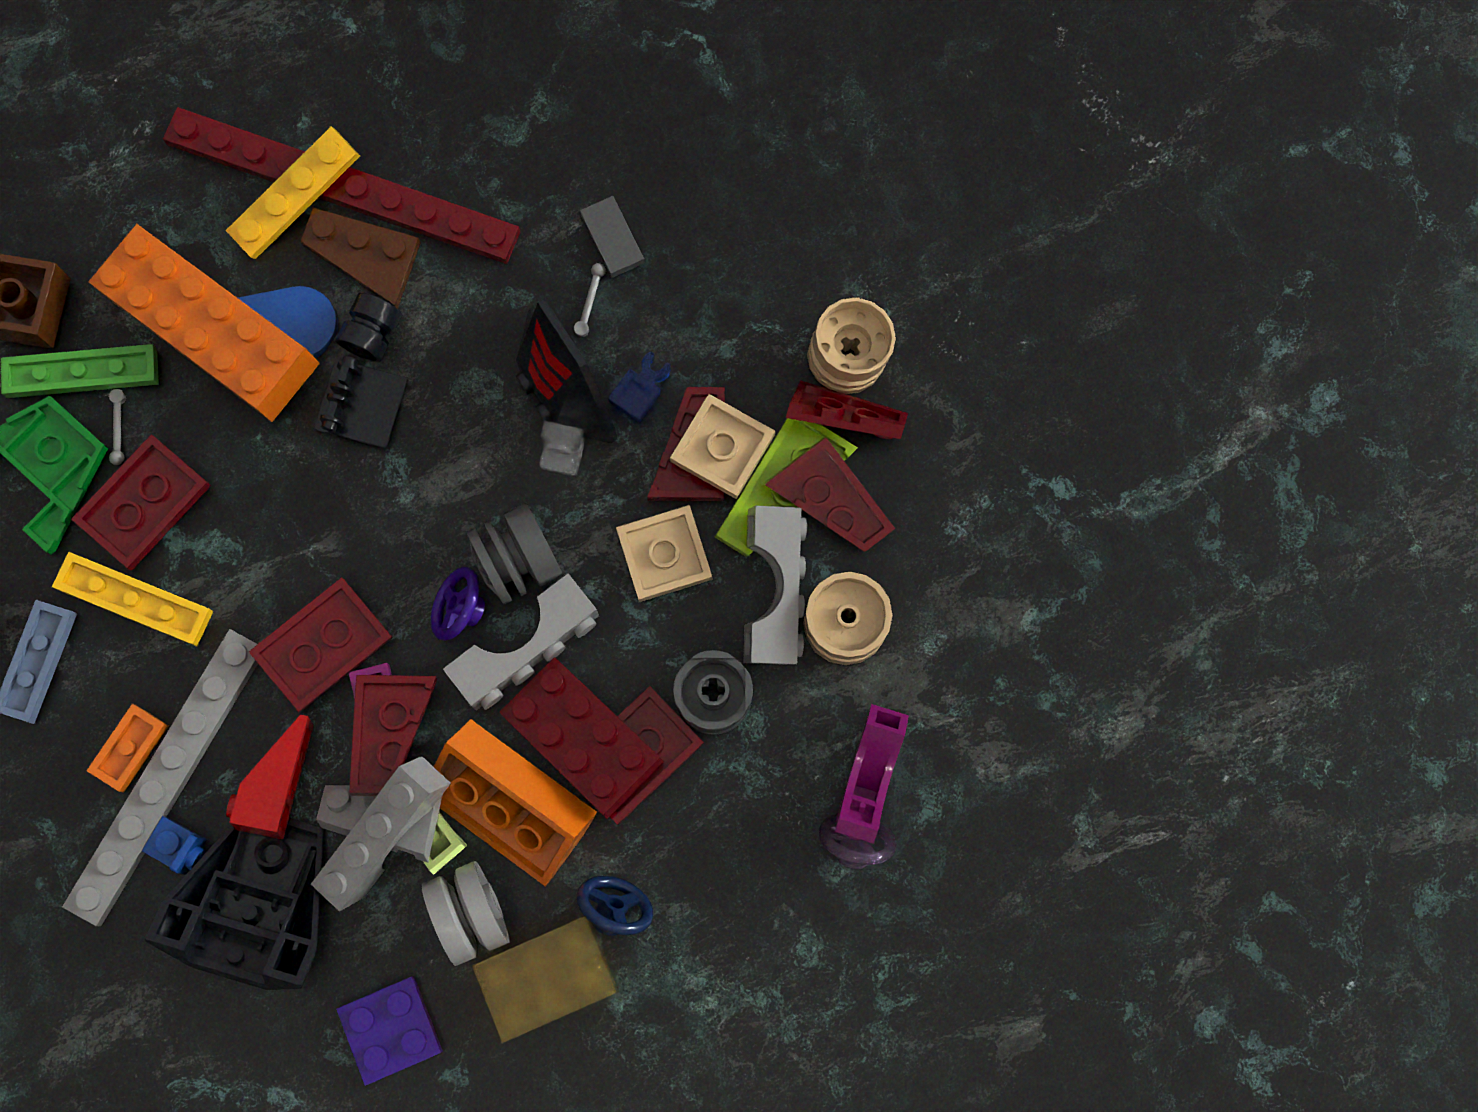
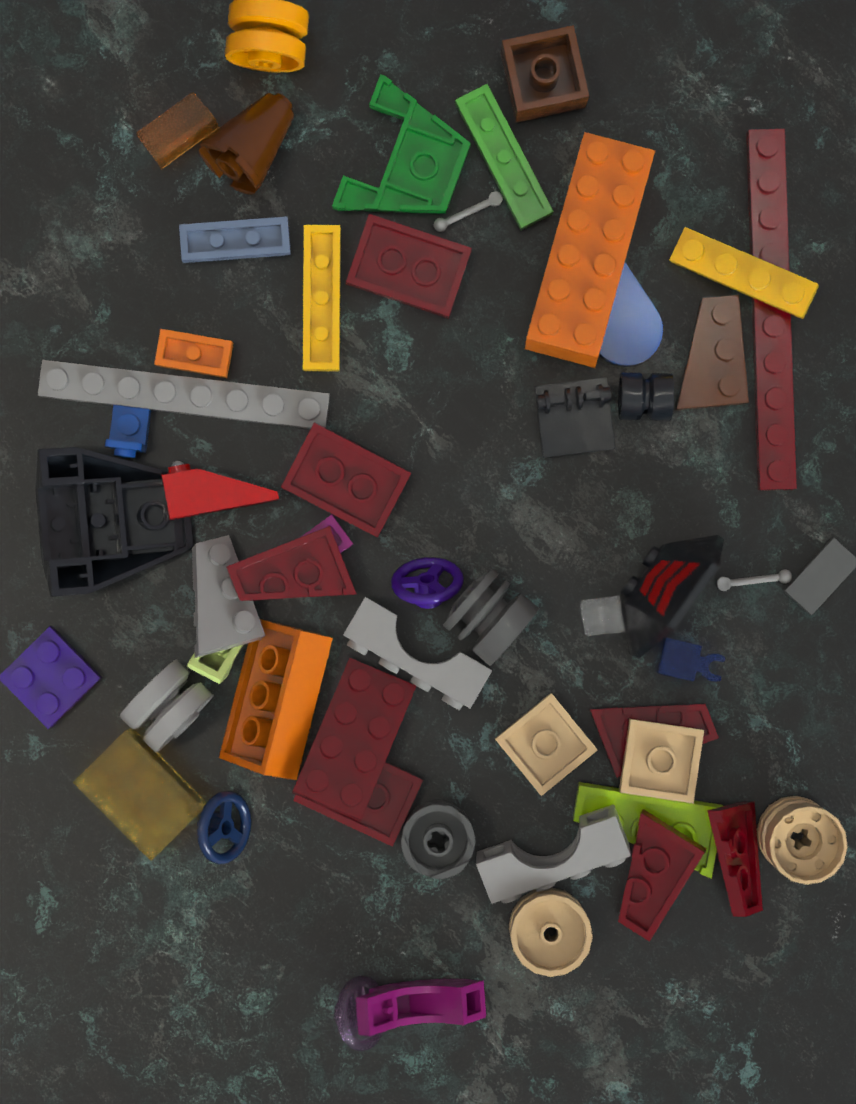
camera: 75 degrees right, 10 degrees up
(396, 808) = (204, 607): light grey arch -> none

